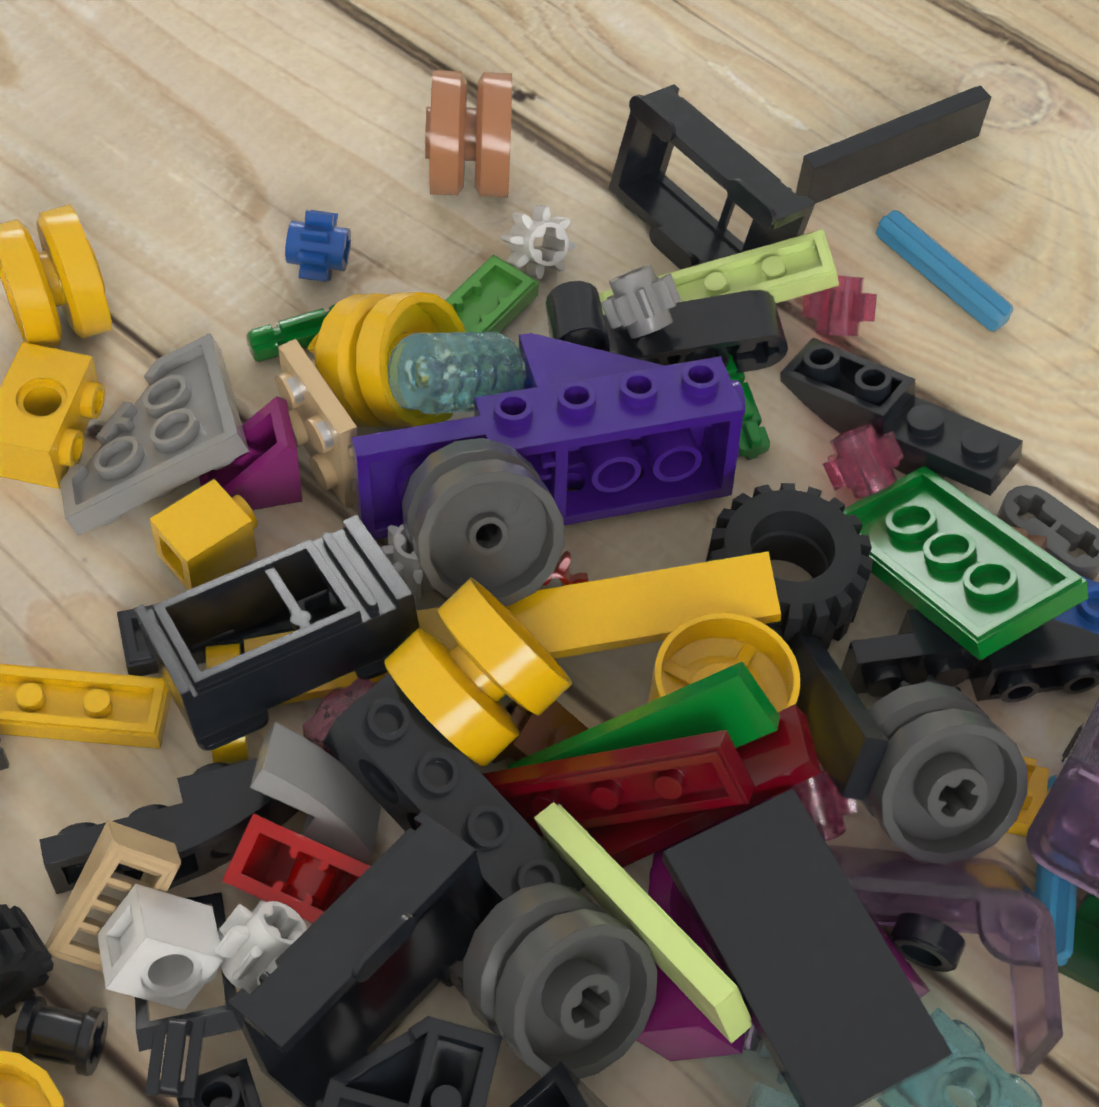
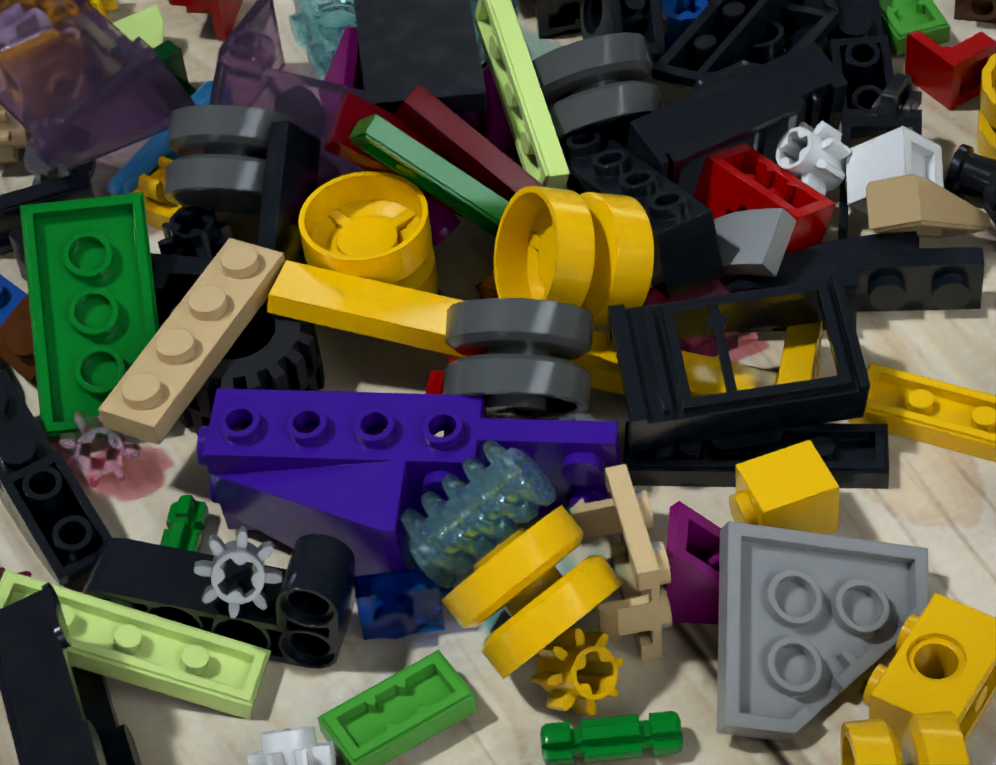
camera: 150 degrees left, 10 degrees down
(818, 516) = (192, 342): none -> tan plate

